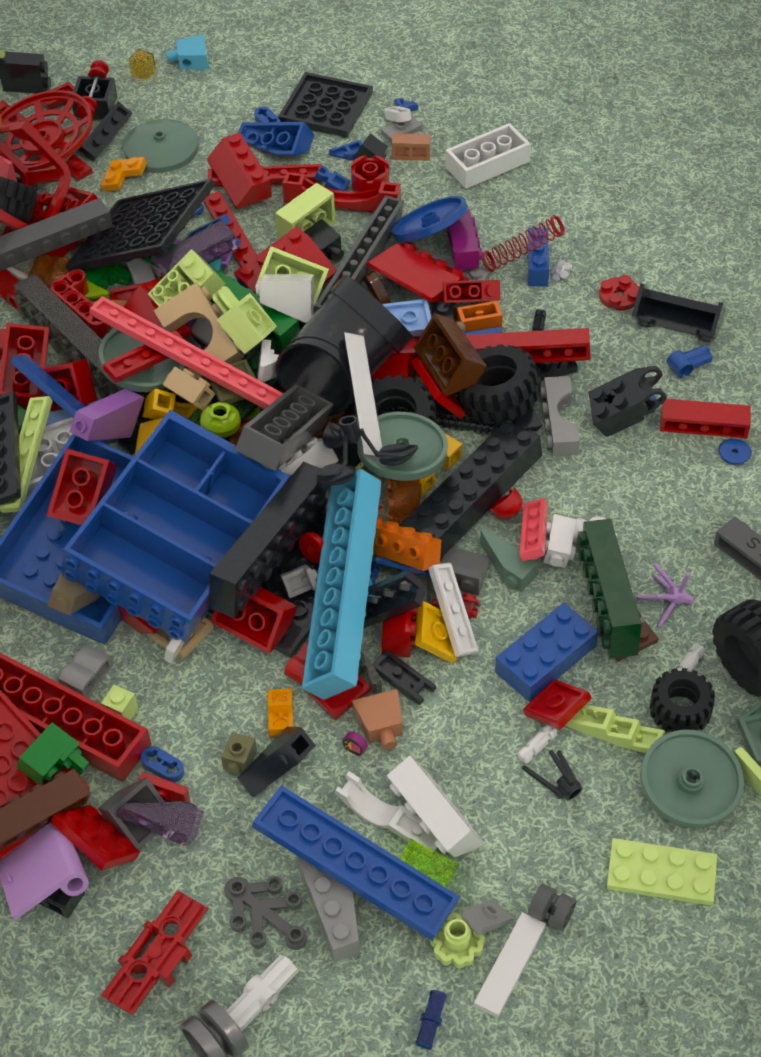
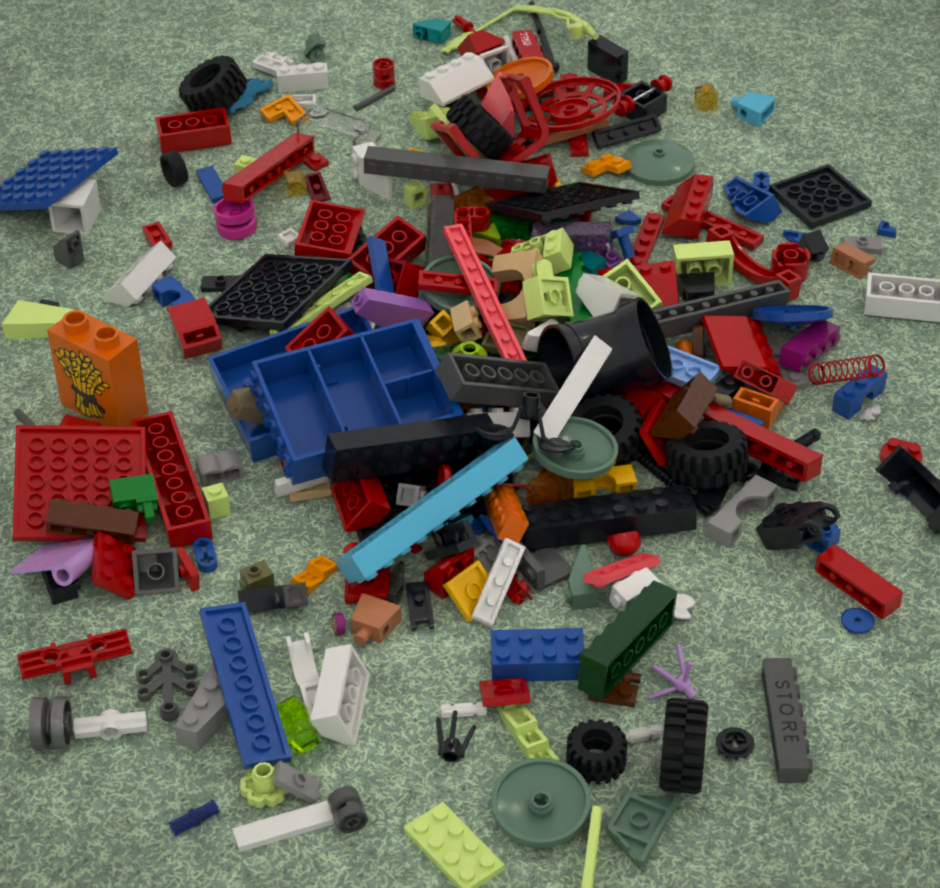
camera: 40 degrees right, 10 degrees down
(168, 819) = (166, 583): clear purple slope -> none
(332, 180) = (758, 252): blue plate -> none
(397, 114) = (868, 230): white beam -> none
(684, 363) = (890, 533): blue piece -> none

